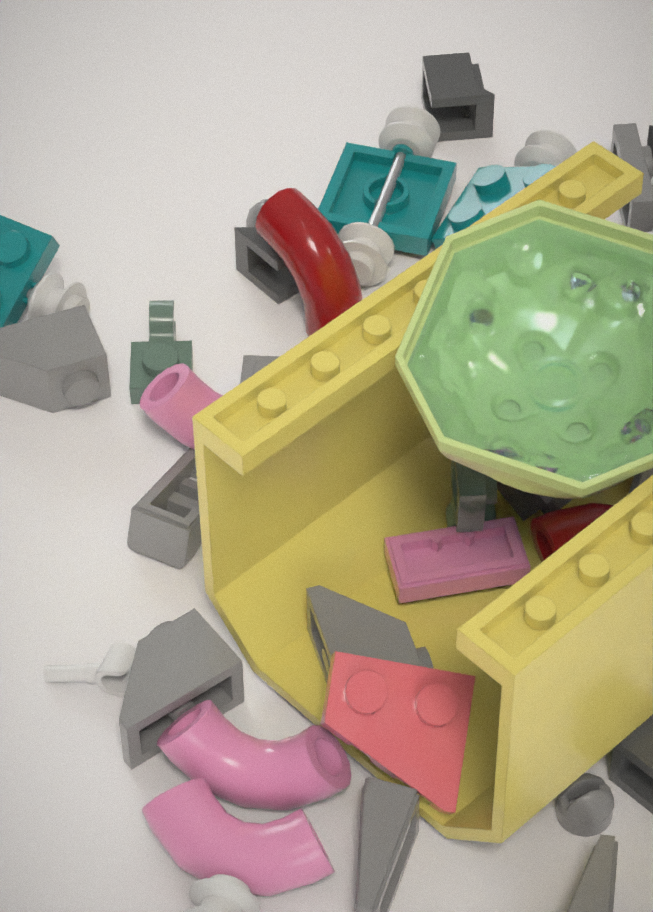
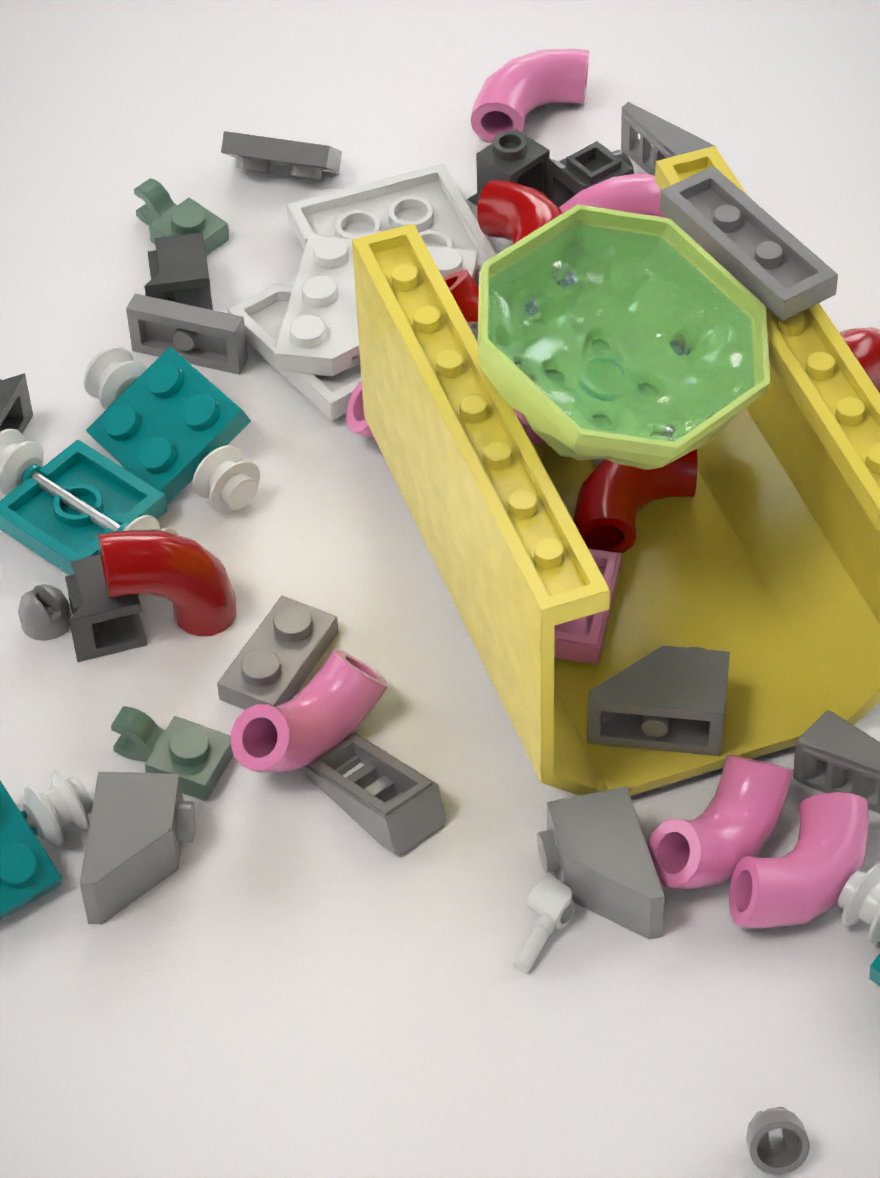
camera: 65 degrees left, 0 degrees up
(404, 720) = (764, 686): coral wing -> none

